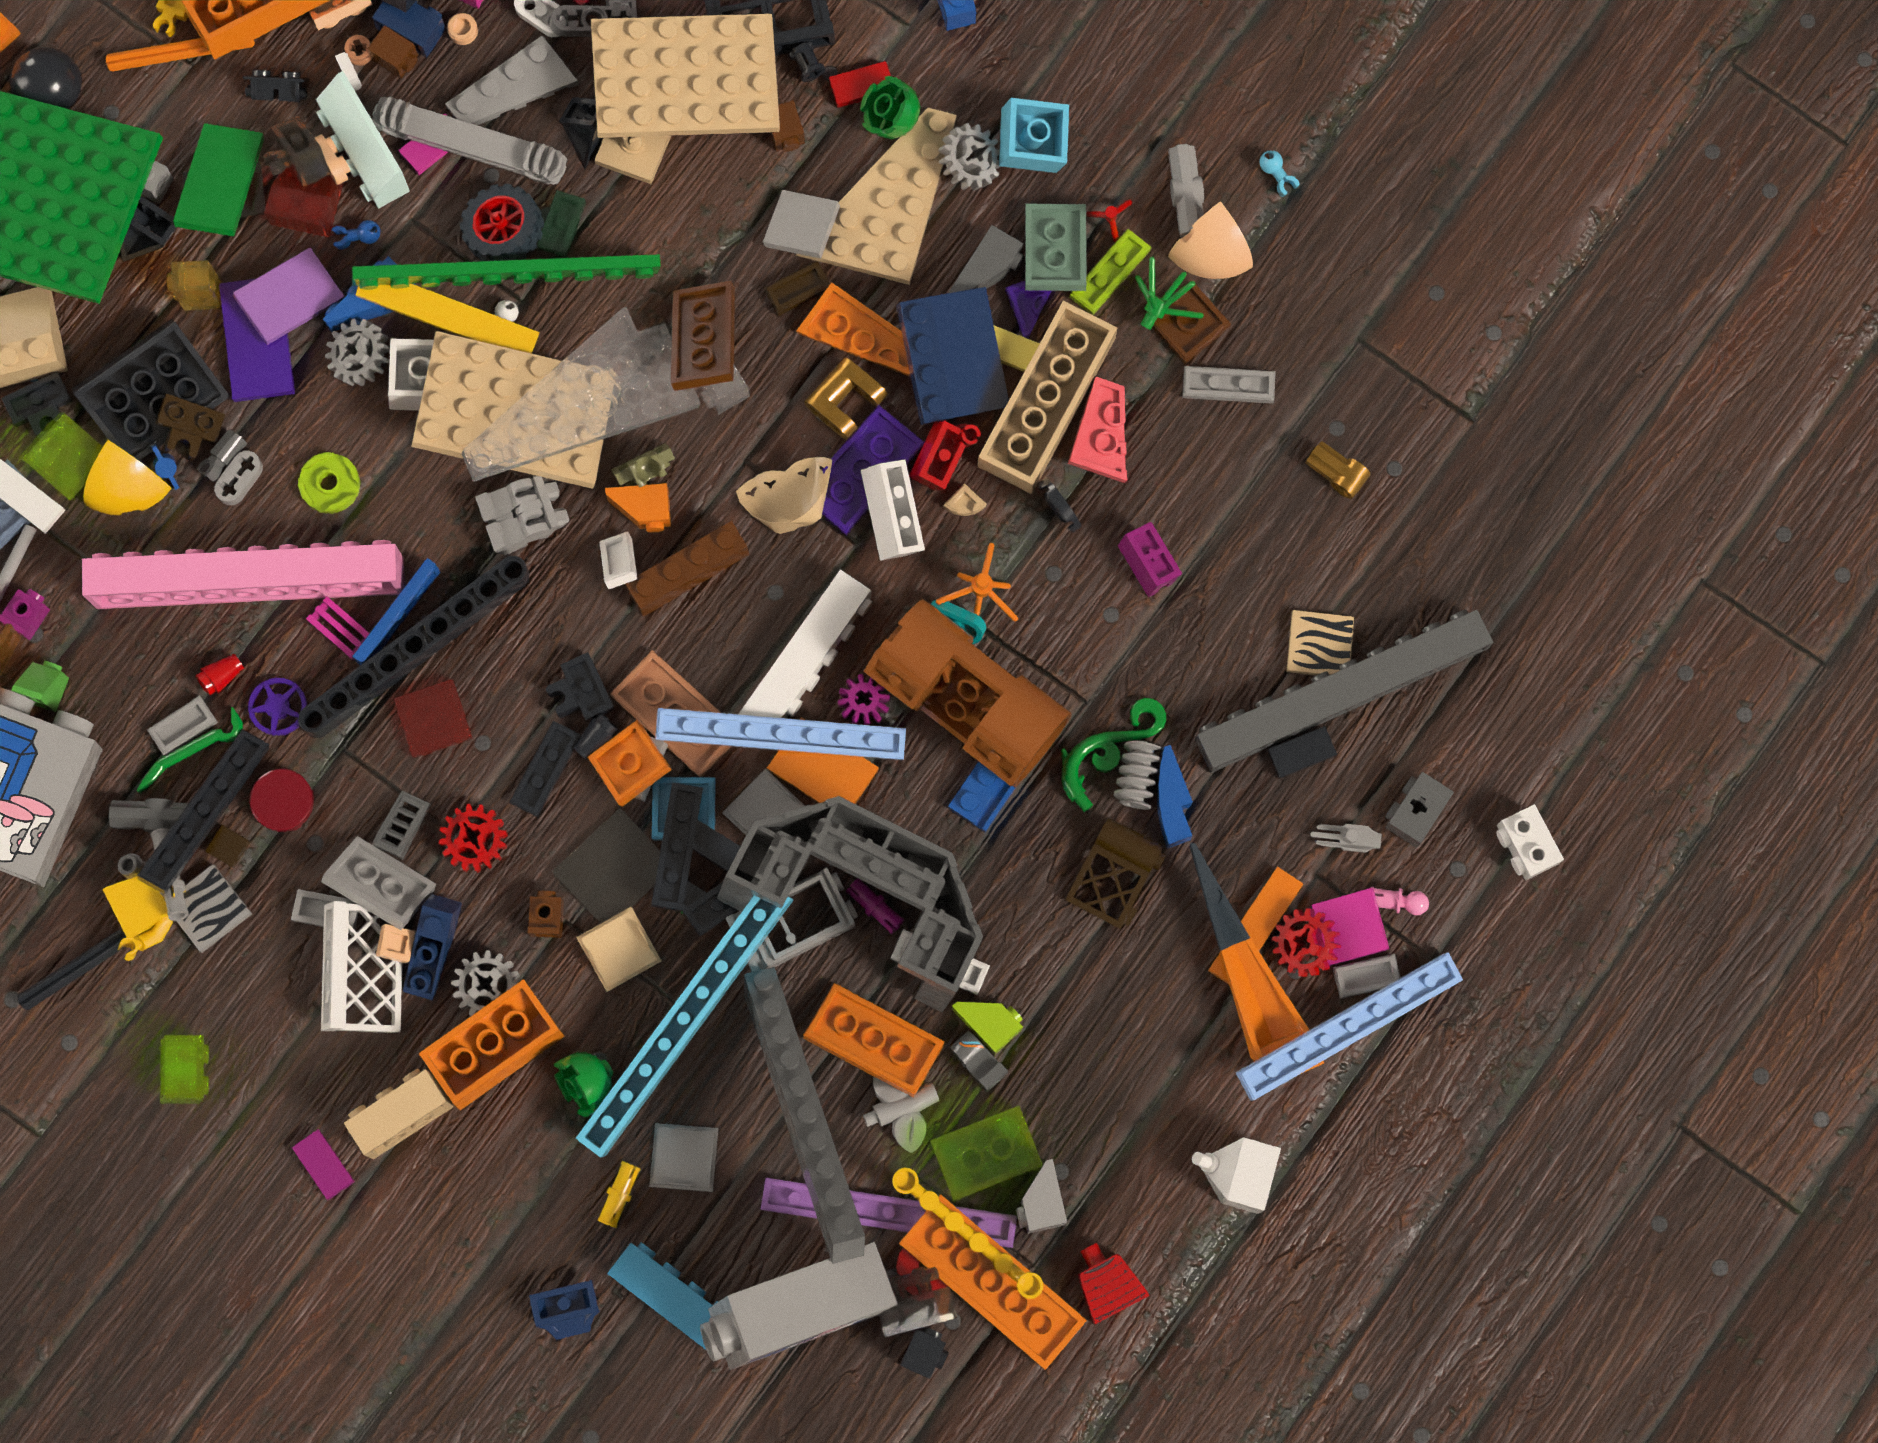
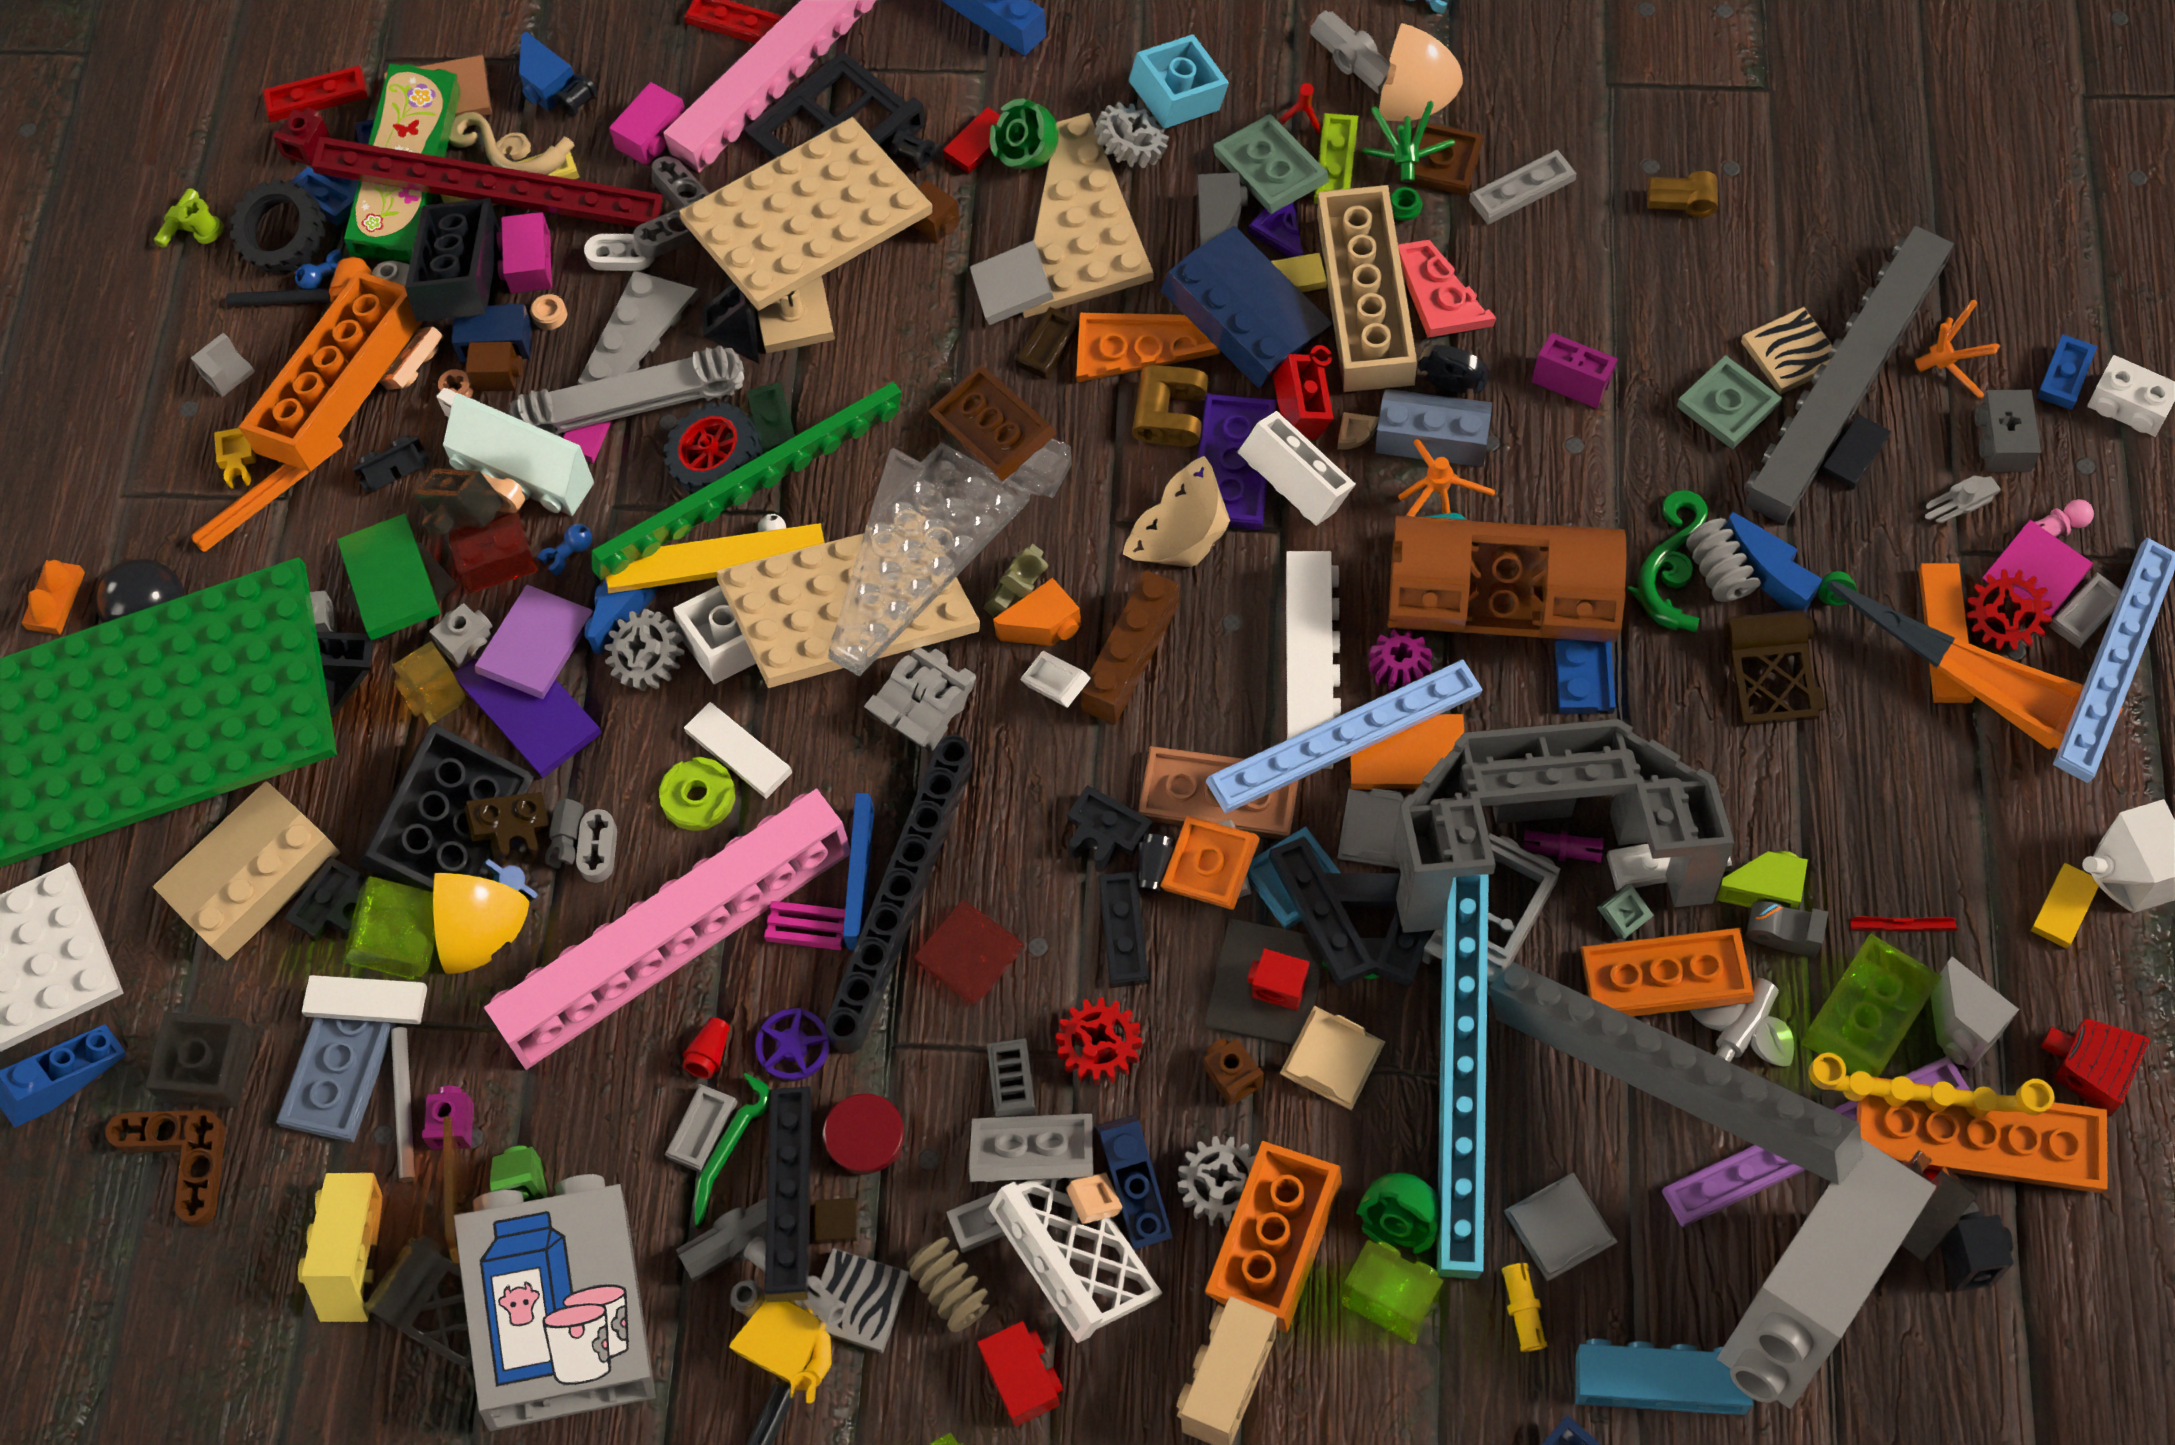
camera: 25 degrees left, 15 degrees down
(242, 260) = (462, 635): none -> light grey brick
(267, 937) = (947, 1286): none -> dark tan piece
(275, 1025) = (1020, 1374): none -> red brick
(376, 468) = (738, 750): none -> white tile
(537, 1130) = (1392, 1290): none -> clear neon green brick
(617, 874) = (1279, 979): none -> red brick
(881, 978) = (1625, 911): none -> sand green tile
(1020, 535) = (1443, 424): none -> sand blue slope
(1061, 1109) = (1924, 924): none -> red piece
(1131, 335) = (1408, 197): none -> green plate
(1174, 1170) = (2065, 906): none -> yellow tile
(1206, 845) = (1828, 596): none -> green plate
(1240, 656) = (1729, 402): none -> sand green plate
(1422, 723) = (1944, 355): none -> orange plant
(1499, 792) = (2067, 372): none -> blue plate

